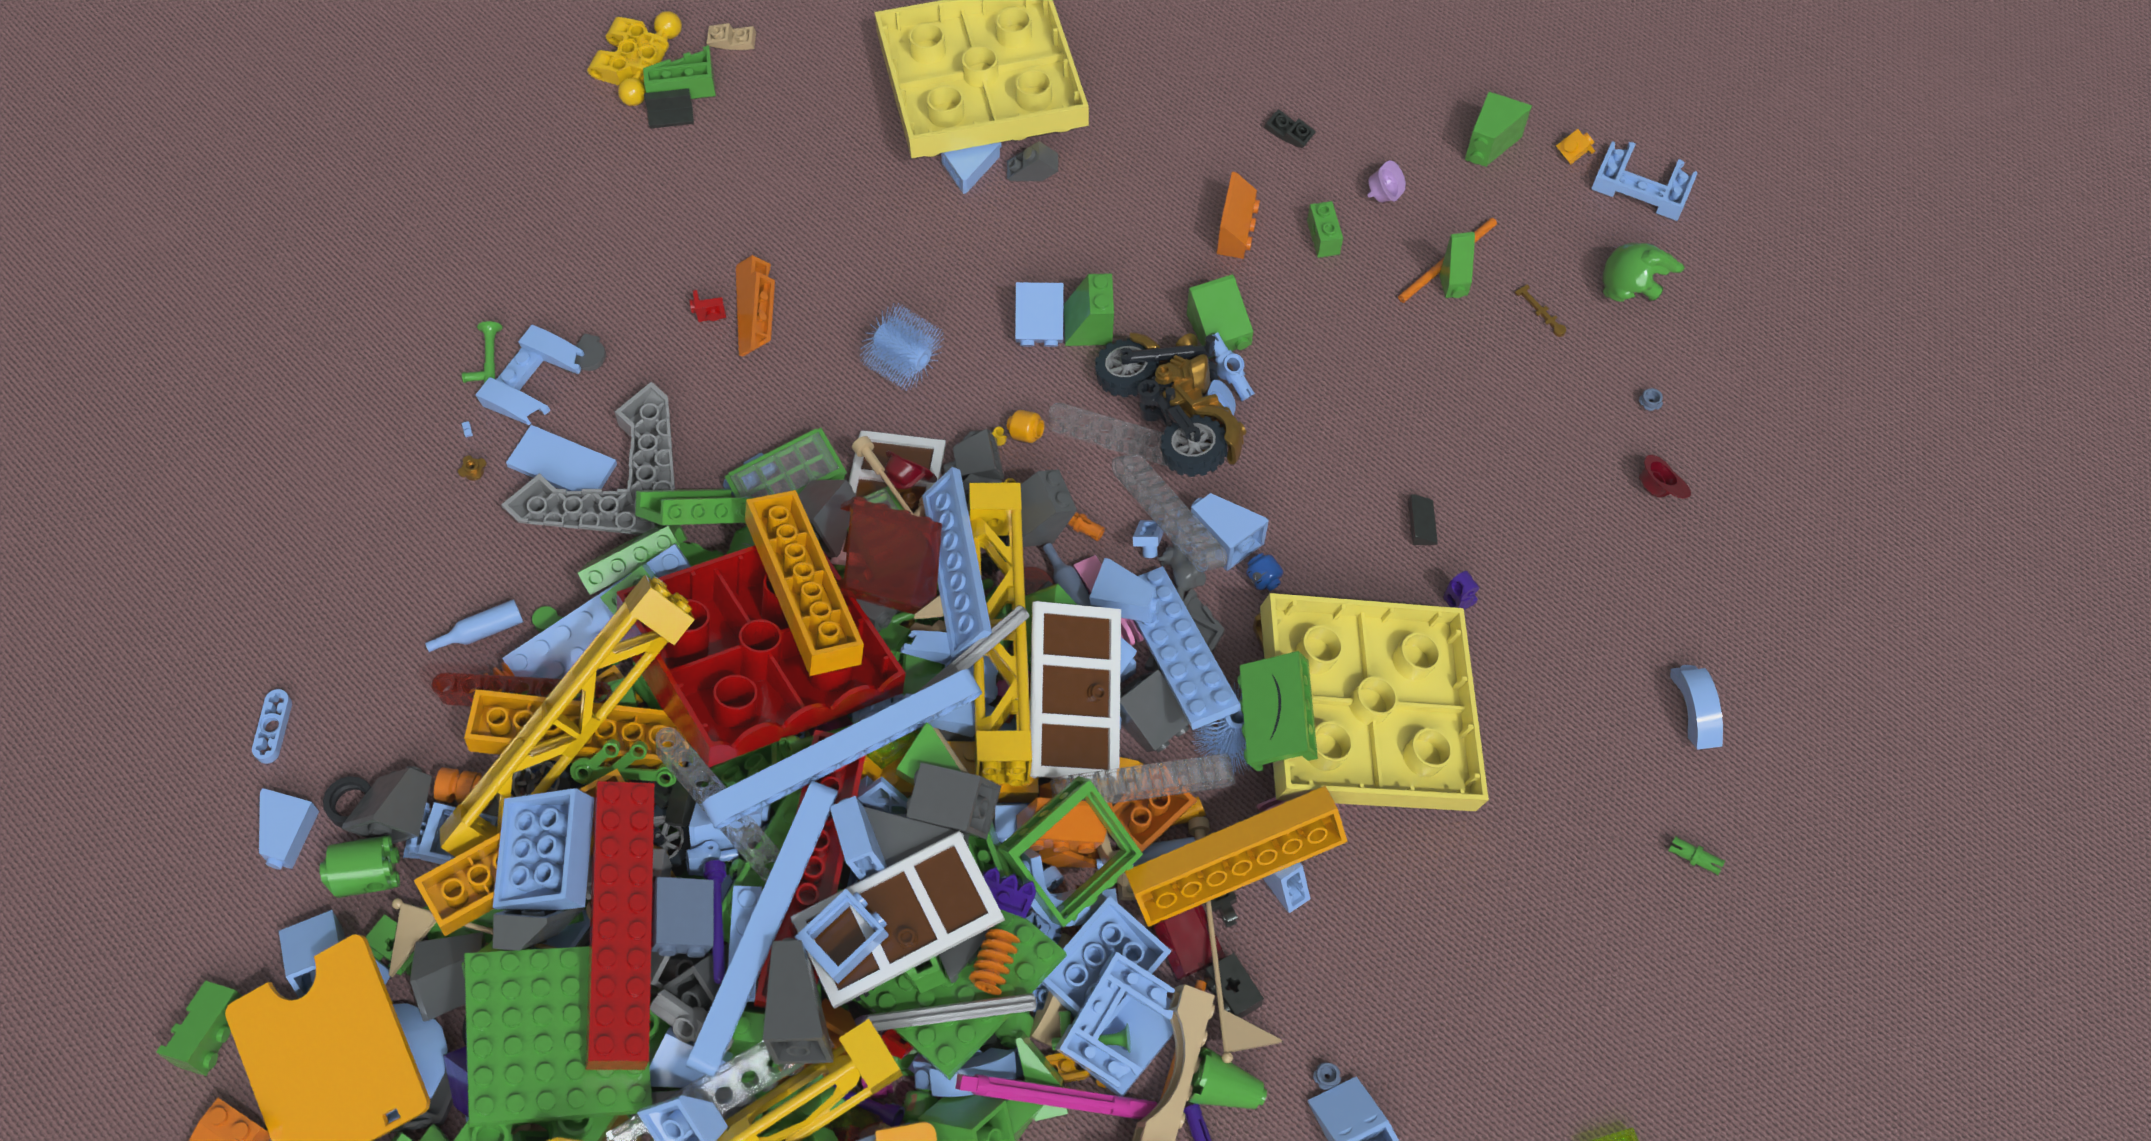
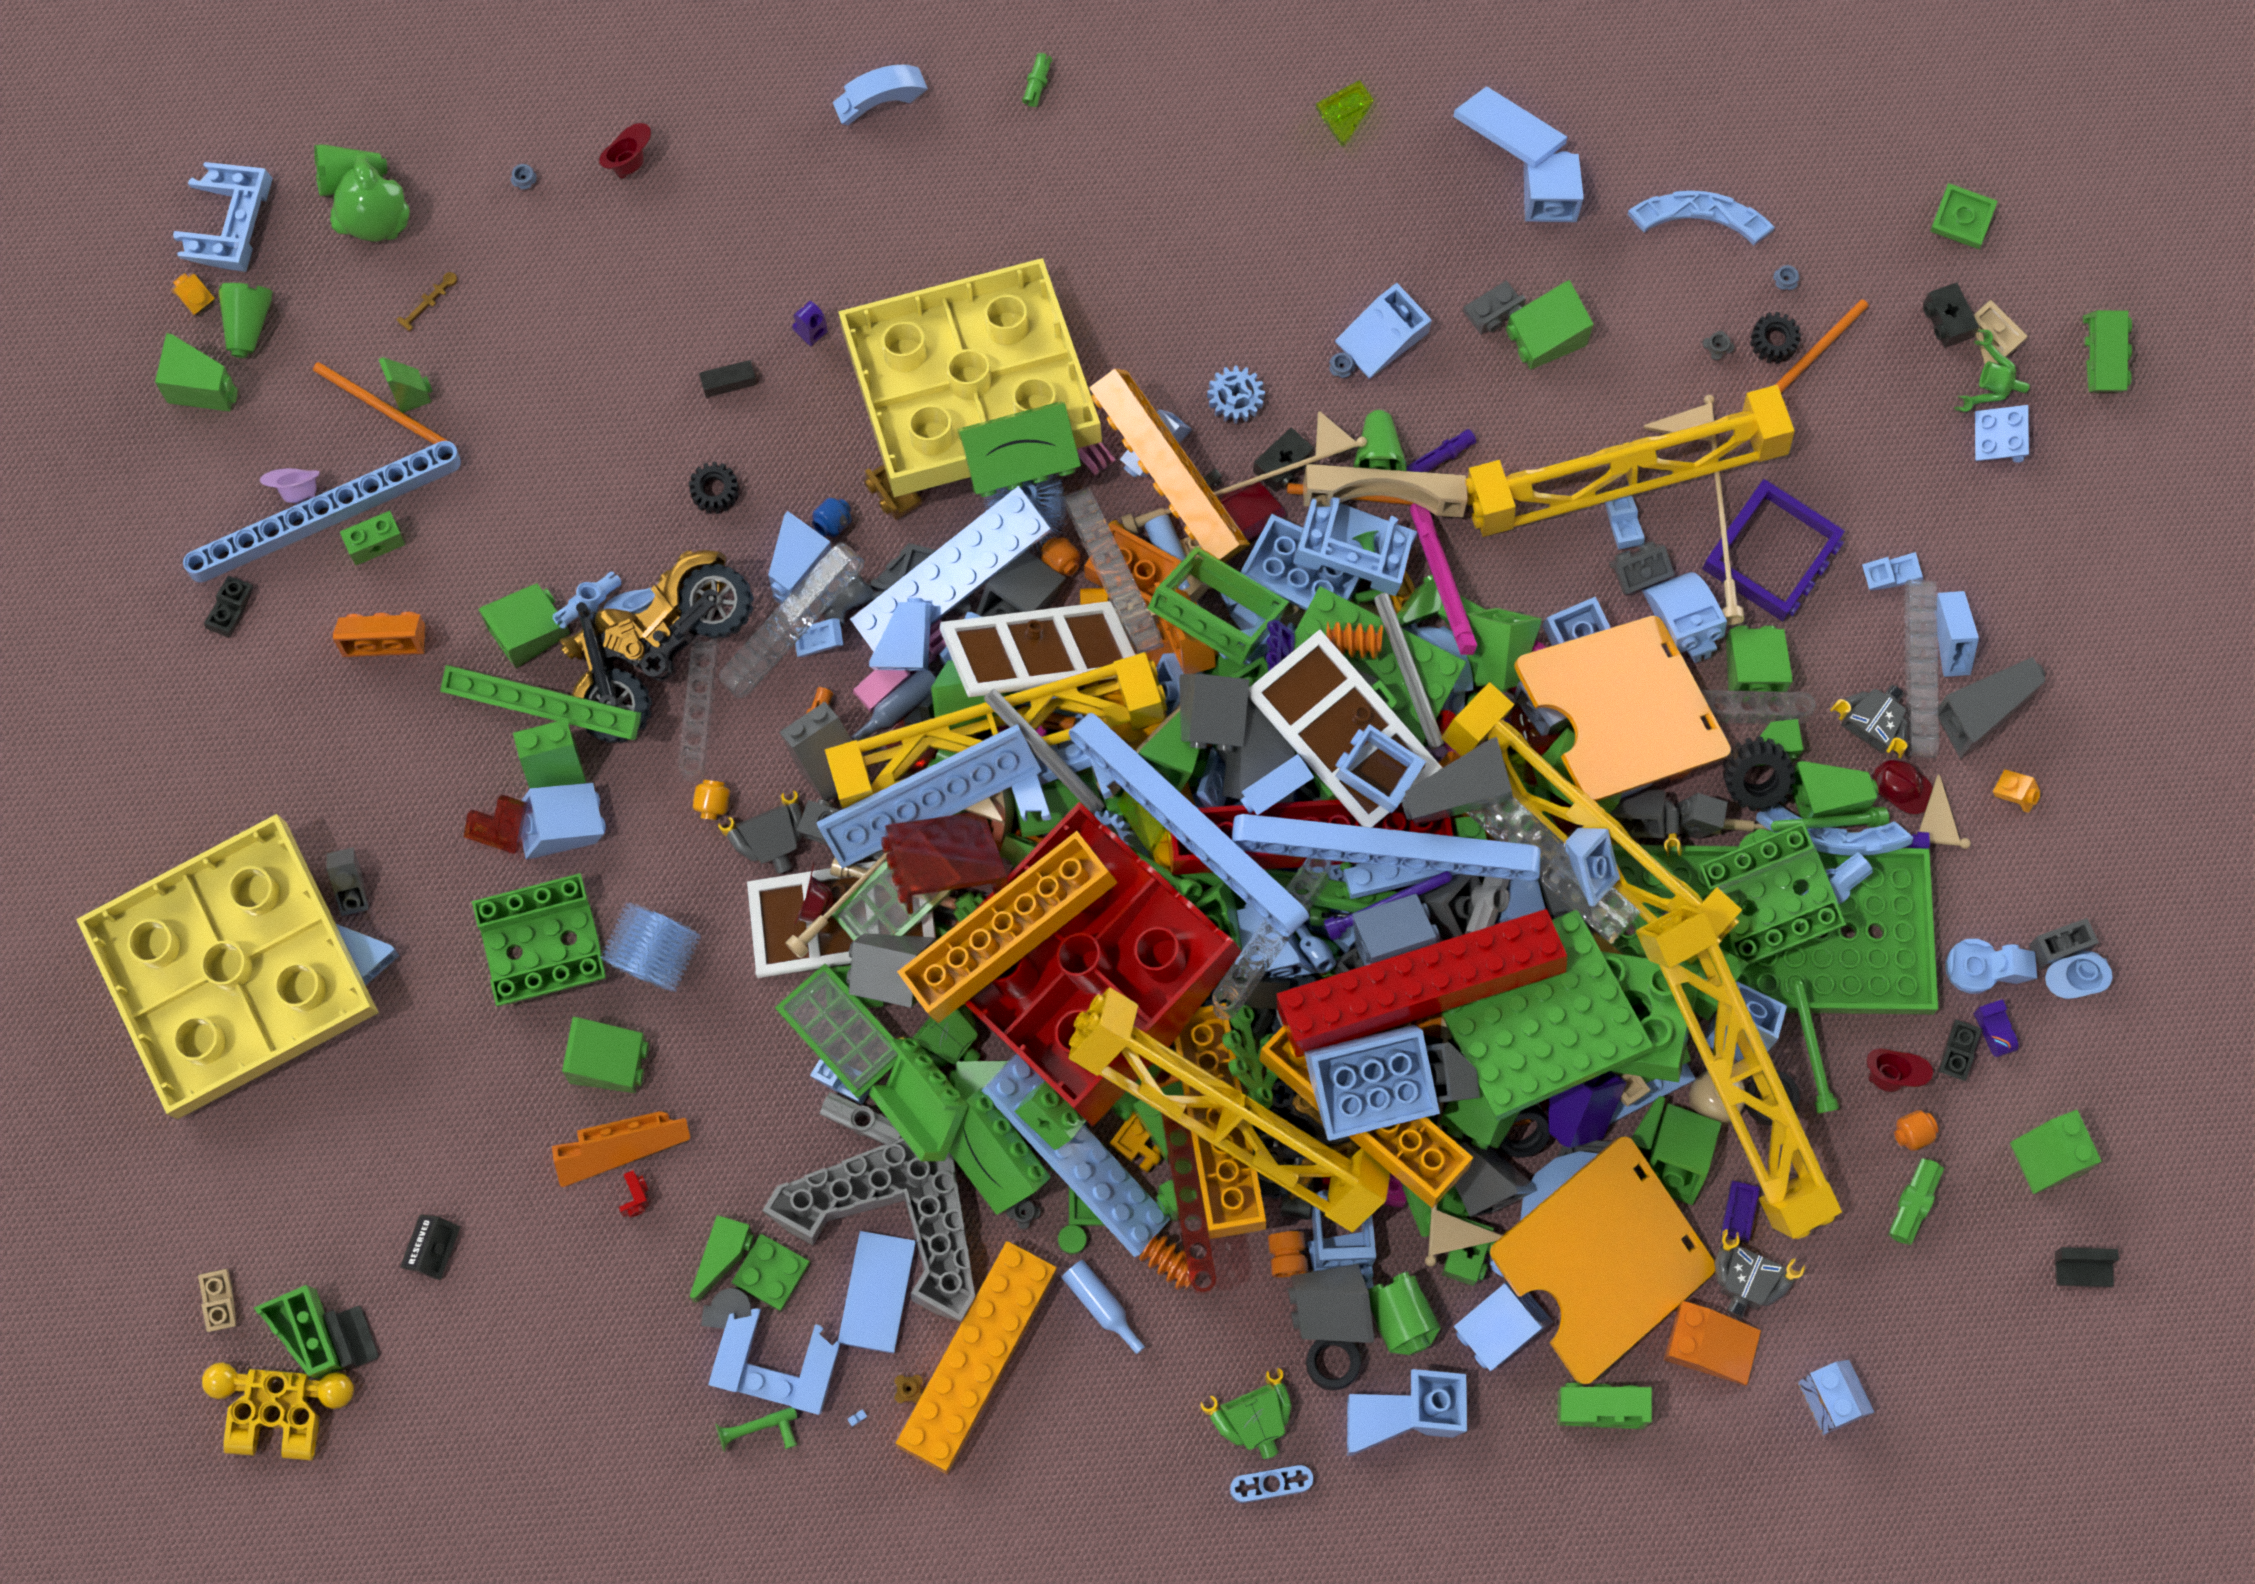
camera: 105 degrees left, 10 degrees up
(270, 872) = (1438, 1403): none -> light blue slope
(329, 721) = (1254, 1417): none -> bright green torso
(475, 521) = (976, 1357): none -> light orange brick
(576, 585) = (1023, 1220): none -> dark grey plate
(607, 391) = (770, 1272): none -> bright green plate
(640, 360) = (723, 1251): none -> bright green slope
(714, 470) = (846, 1112): none -> light grey piece
(718, 170) = (430, 1246): none -> pearl dark grey panel
(826, 303) = (604, 1056): none -> bright green slope
(919, 287) = (536, 922): none -> bright green slope
(1048, 268) = (502, 829): none -> clear red plate
(1140, 311) = (540, 702): none -> bright green plate
(1179, 749) = (1061, 555): none -> orange head
(1306, 952) = (1232, 383): none -> light blue gear
(1320, 475) = (713, 502): none -> black tyre
(1358, 204) = (309, 511): none -> light blue beam
(1545, 172) = (243, 316): none -> bright green cone
(1685, 250) = (335, 161): none -> bright green cone

